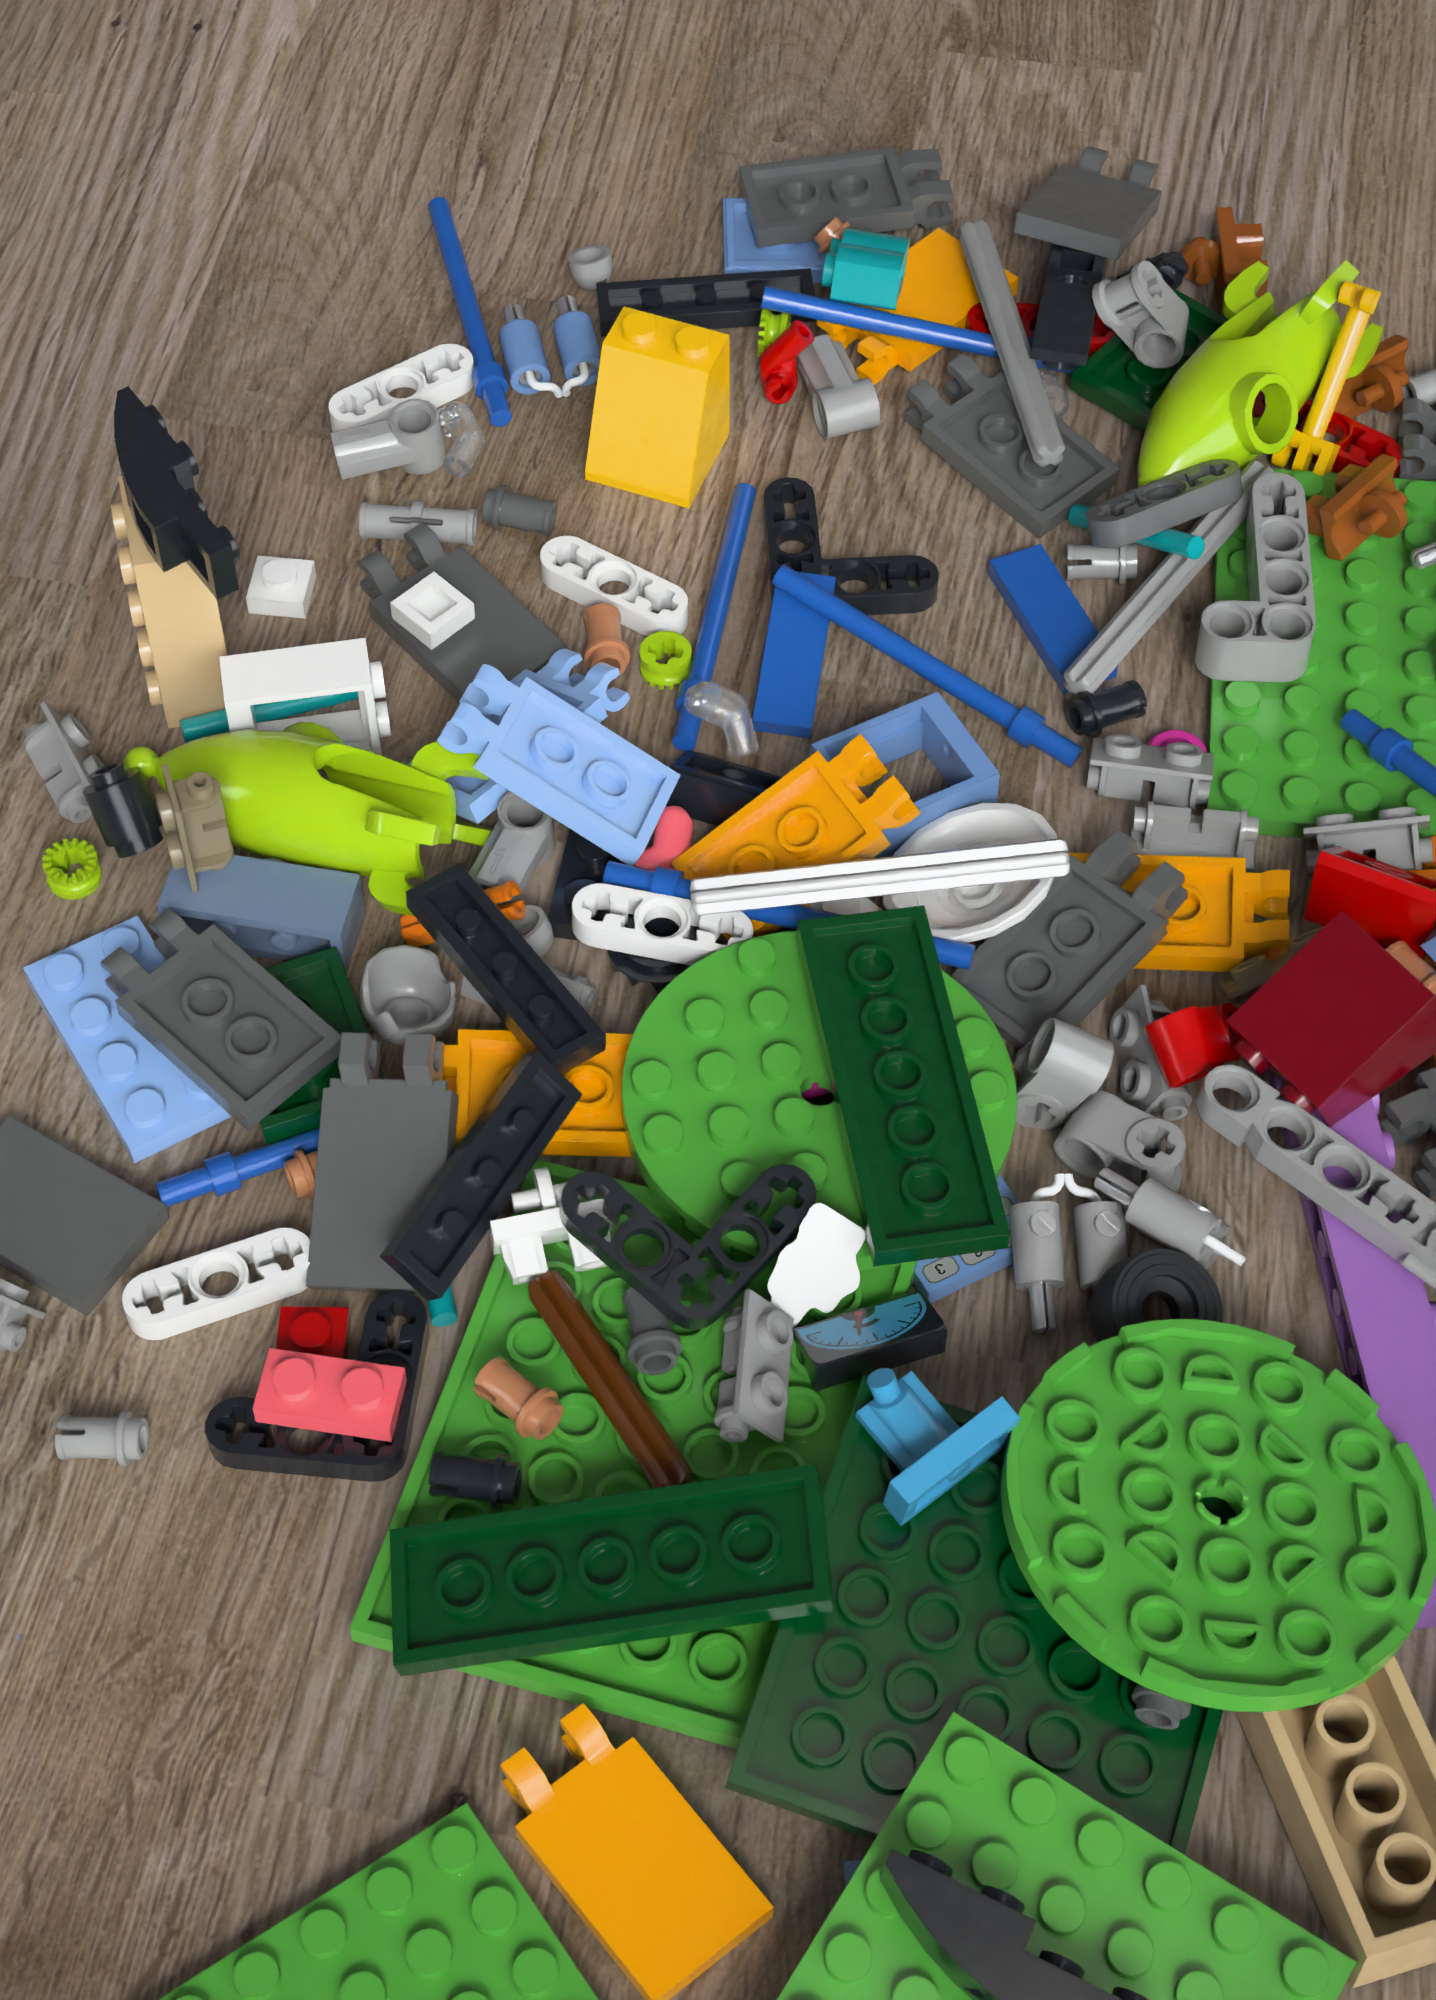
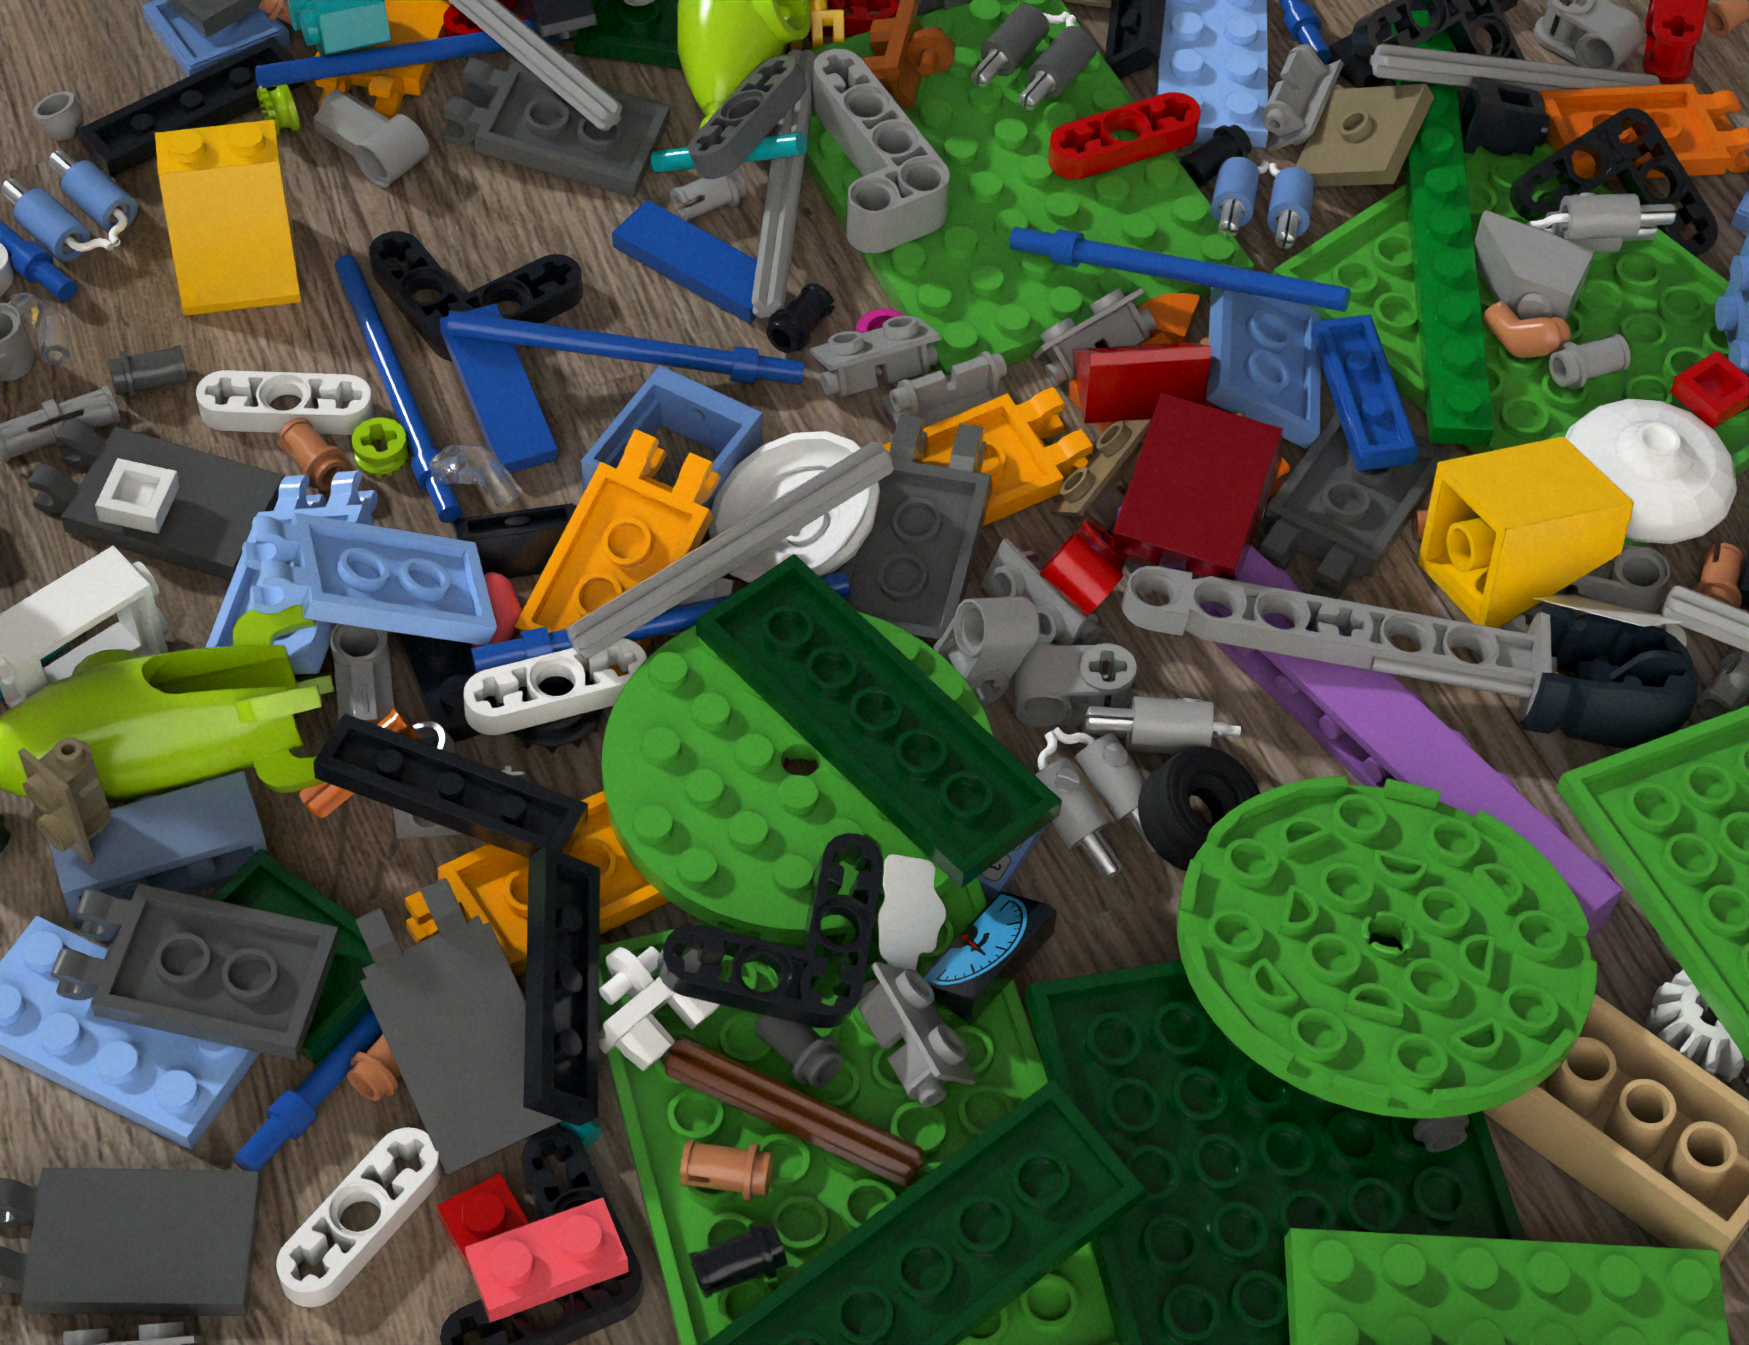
camera: 35 degrees left, 0 degrees up
(406, 994) = (360, 862): light grey hair -> none
(780, 362) = (304, 134): red arm -> none
(927, 1441) = (1122, 1012): dark azure piece -> none

